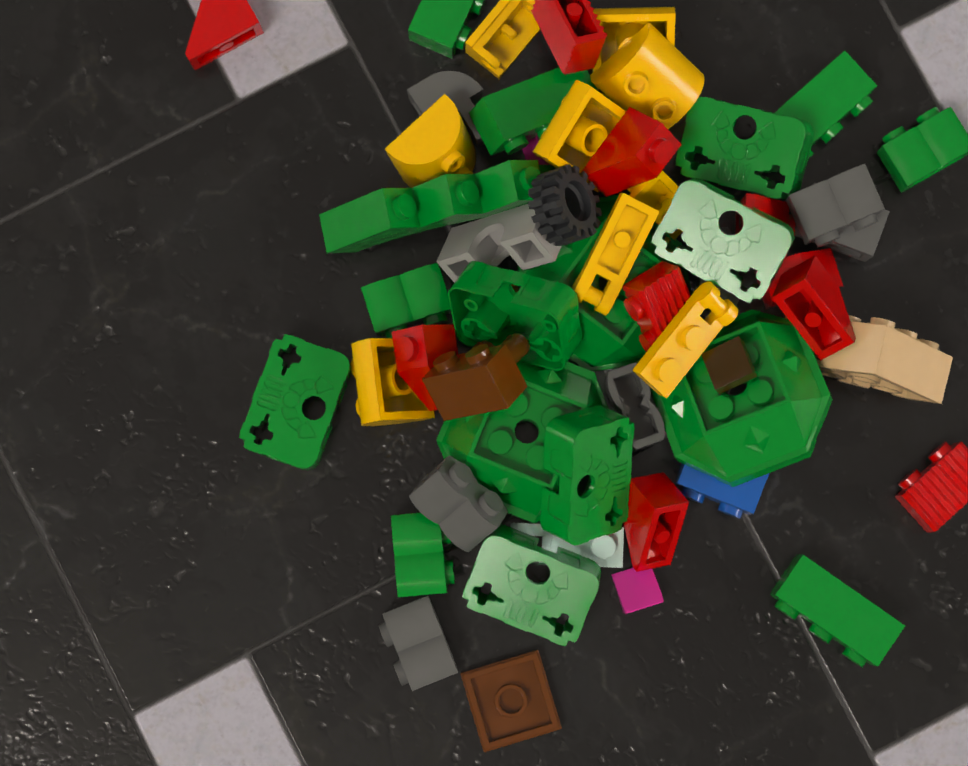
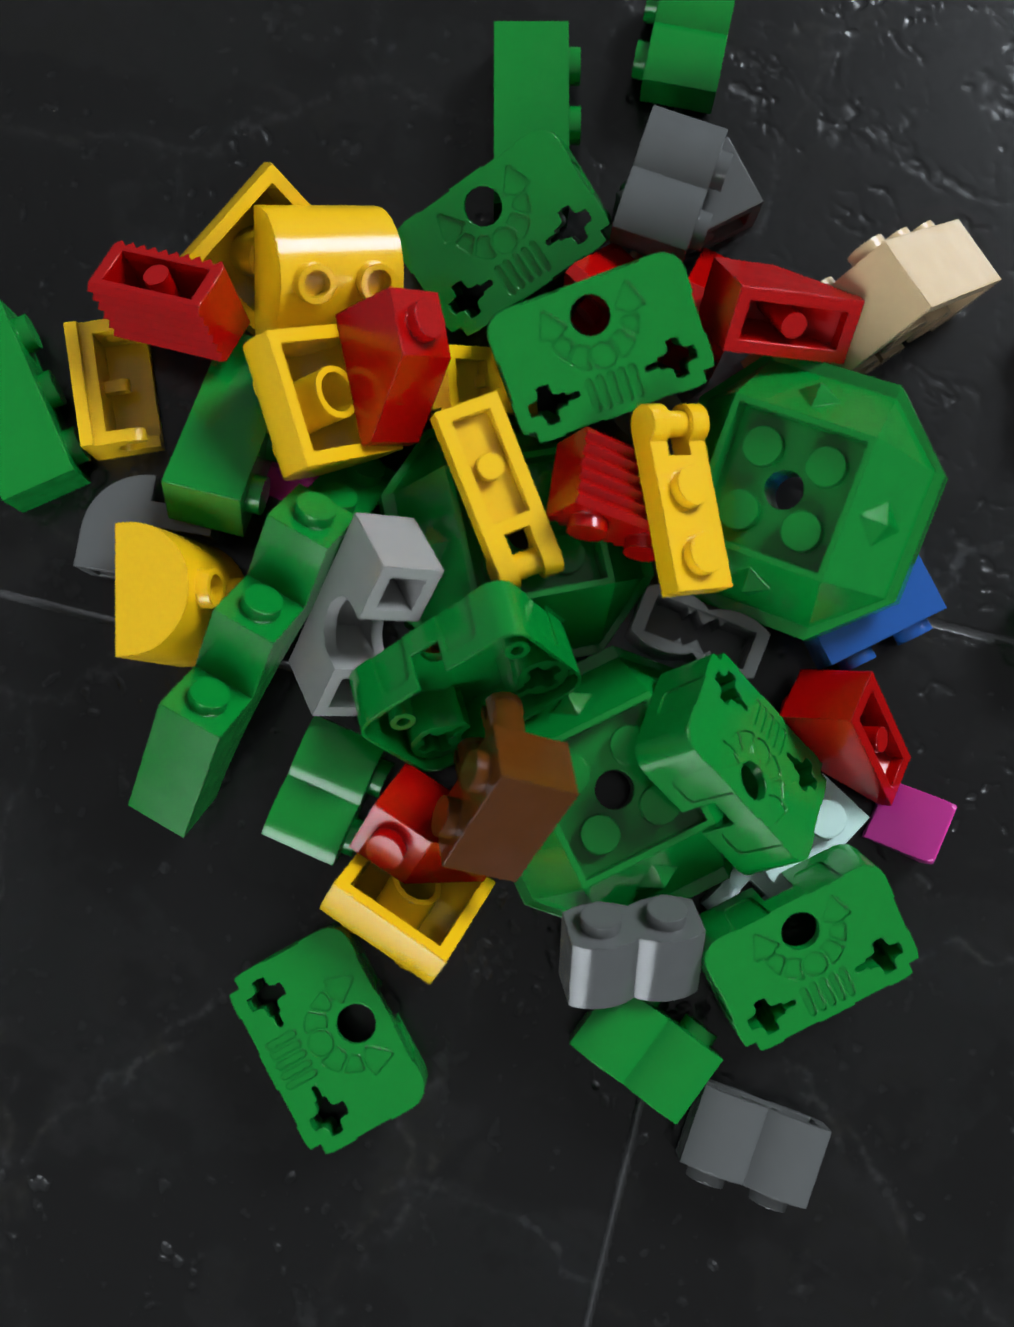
camera: 50 degrees left, 0 degrees up
(510, 700) = (911, 1090): reddish brown tile -> none
(564, 205) = (385, 498): black tyre -> none
(729, 365) = (759, 474): dark brown tile -> none

